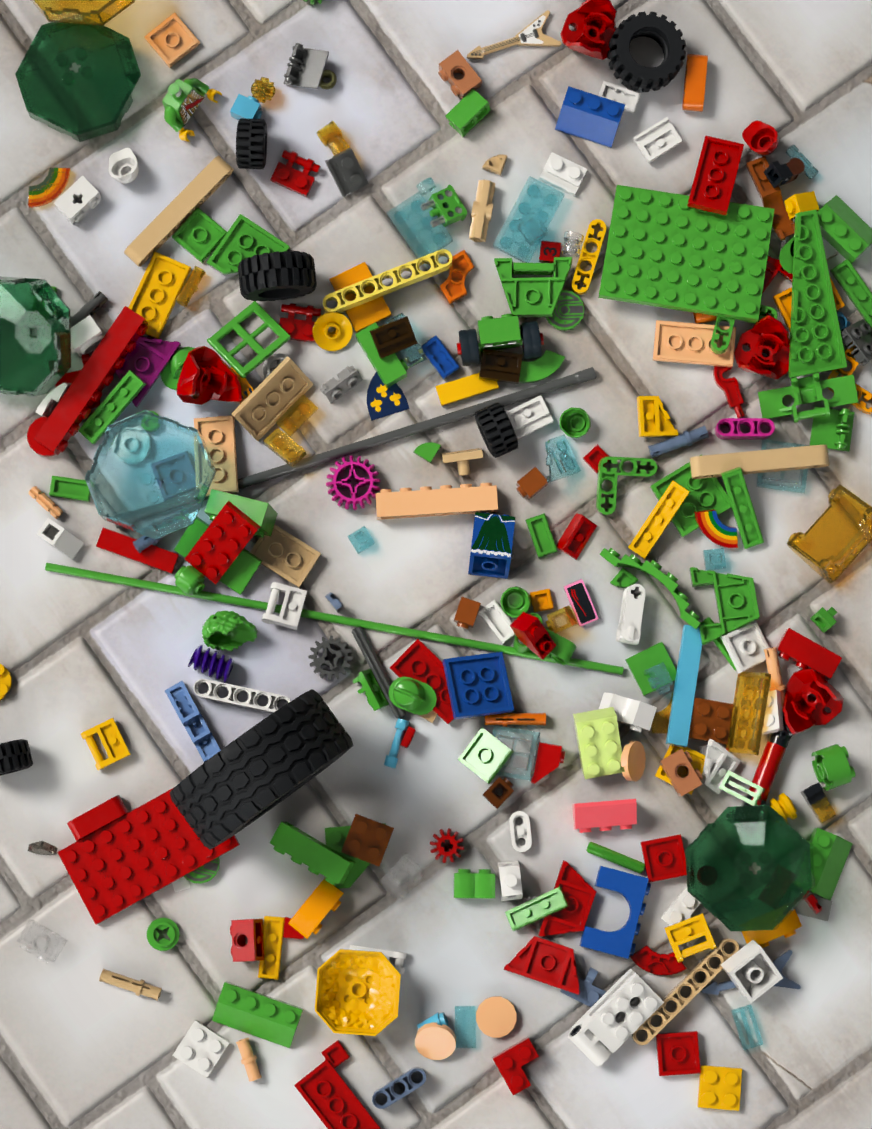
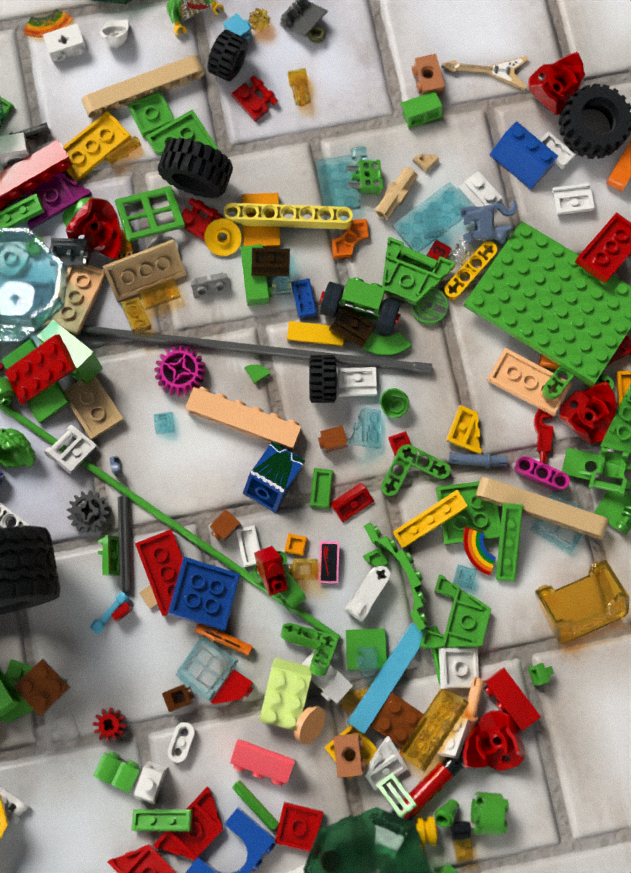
camera: 25 degrees right, 5 degrees down
(191, 412) = (71, 251): none -> dark grey hinge
(346, 172) = (296, 113): dark grey plate -> none
(383, 400) = (240, 315): dark blue sticker -> none
(412, 695) = (143, 577): bright green piece -> none
(462, 458) = (283, 392): tan tile -> none
(485, 755) = (181, 659): tile -> none
(515, 601) = (271, 534): bright green hair -> none
(580, 201) = (484, 222): none -> sand blue animal
(583, 684) = (297, 634): none -> bright green beam
(794, 785) = (445, 815): none -> bright green cone

